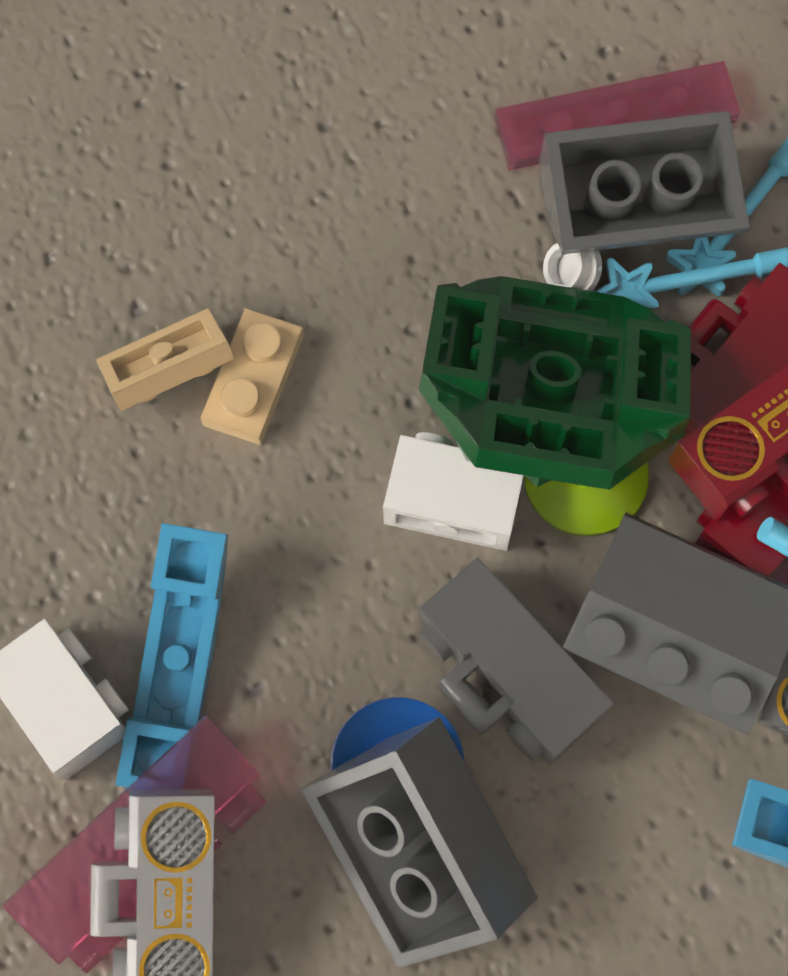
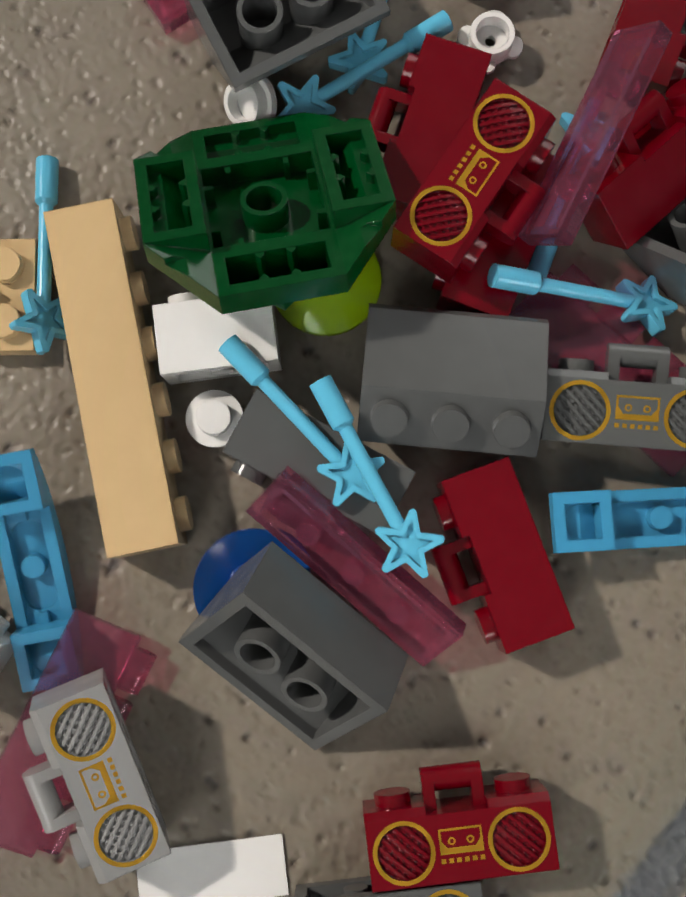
camera: 20 degrees left, 10 degrees up
(282, 405) = (42, 314): none -> medium azure piece
(332, 502) = (116, 379): none -> tan brick
(418, 573) = (213, 417): none -> white plate
(516, 784) = (353, 567): none -> clear pink tile
(540, 672) = (342, 466): none -> medium azure piece
(579, 762) = (403, 536): none -> medium azure piece
(682, 851) = (514, 572): none -> dark red piece

